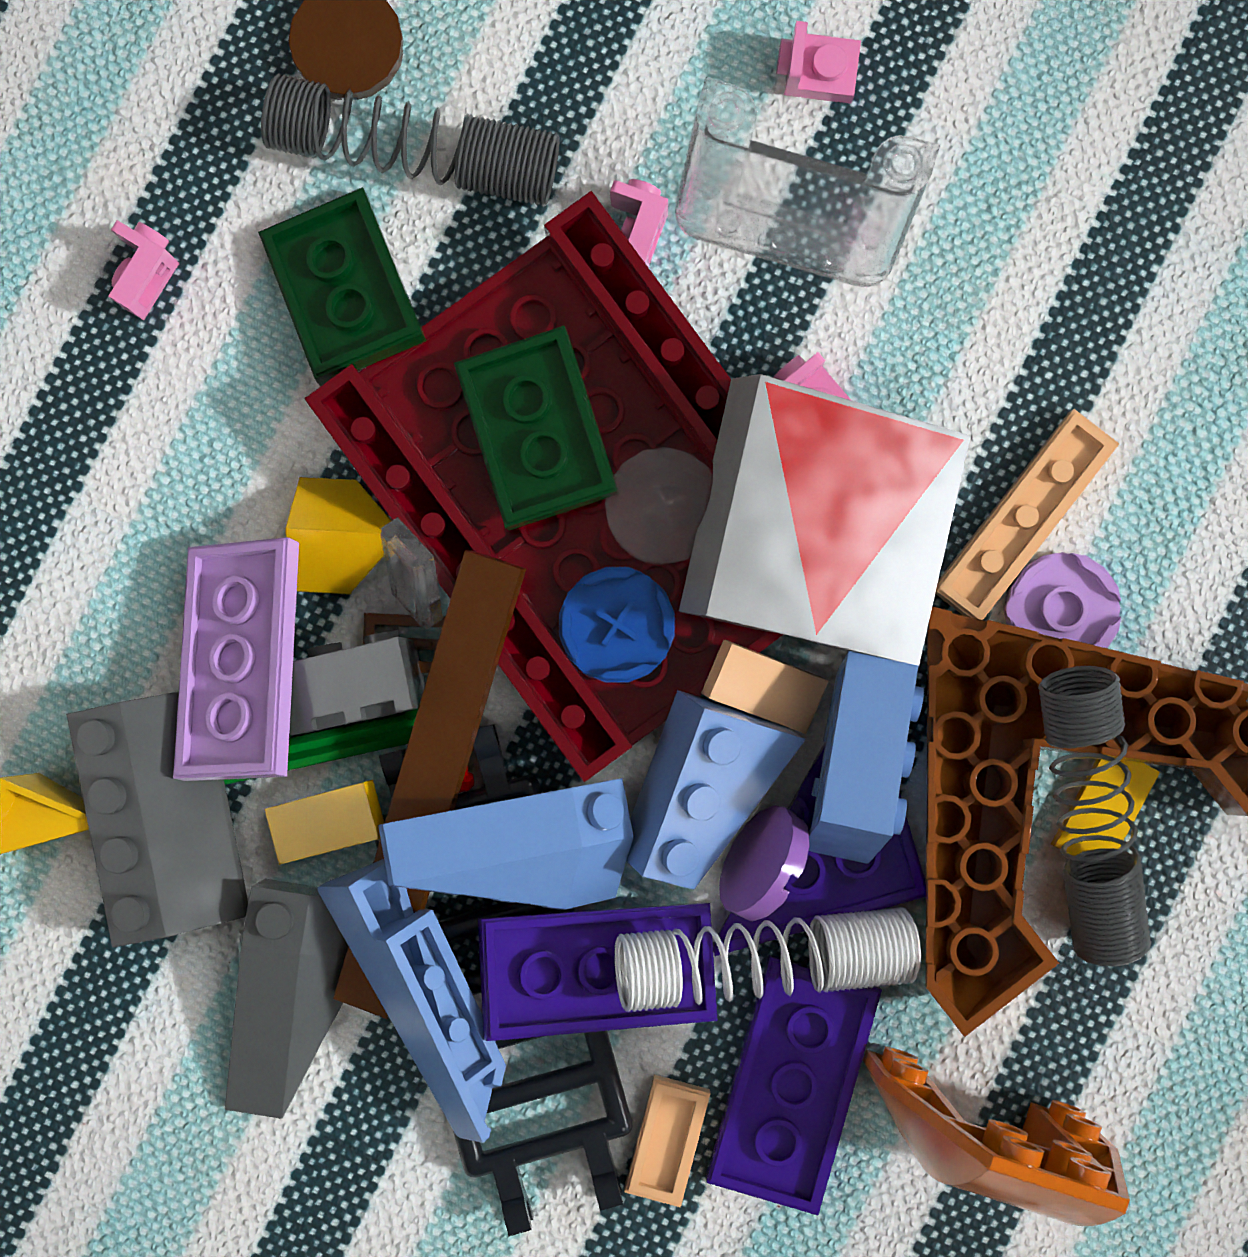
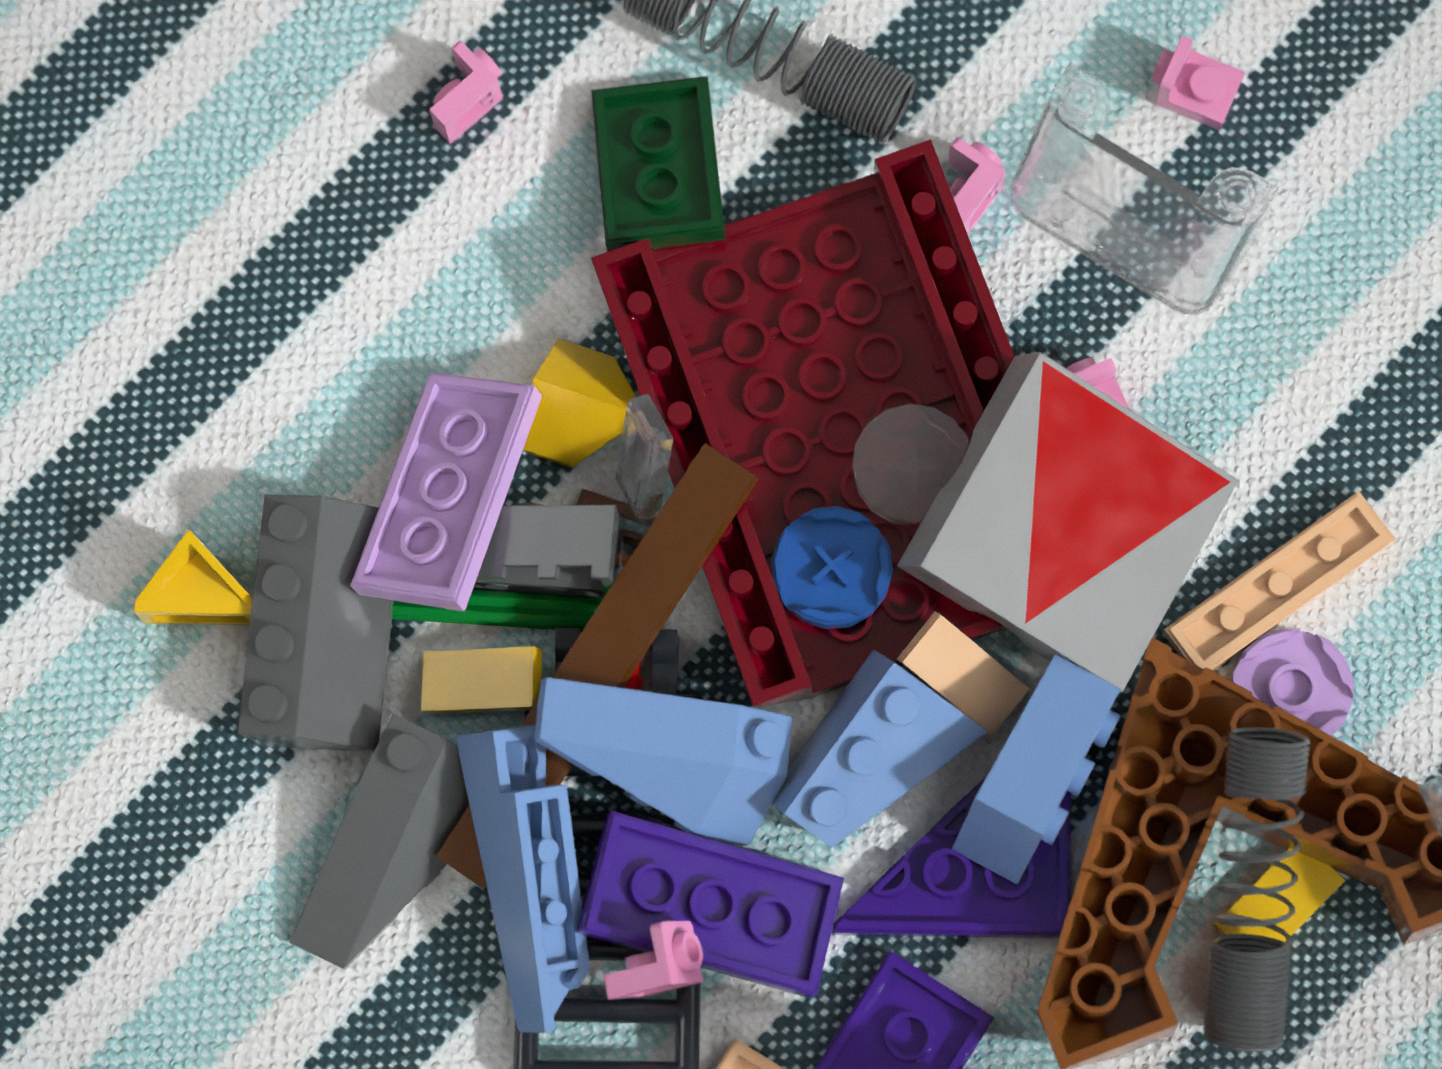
camera: 25 degrees right, 10 degrees down
(536, 428) = (809, 353): dark green tile -> none
(573, 1054) = (668, 968): none -> bright pink bracket
(762, 861) = (897, 851): medium lavender tile -> none
(843, 955) = (965, 958): white piece -> none

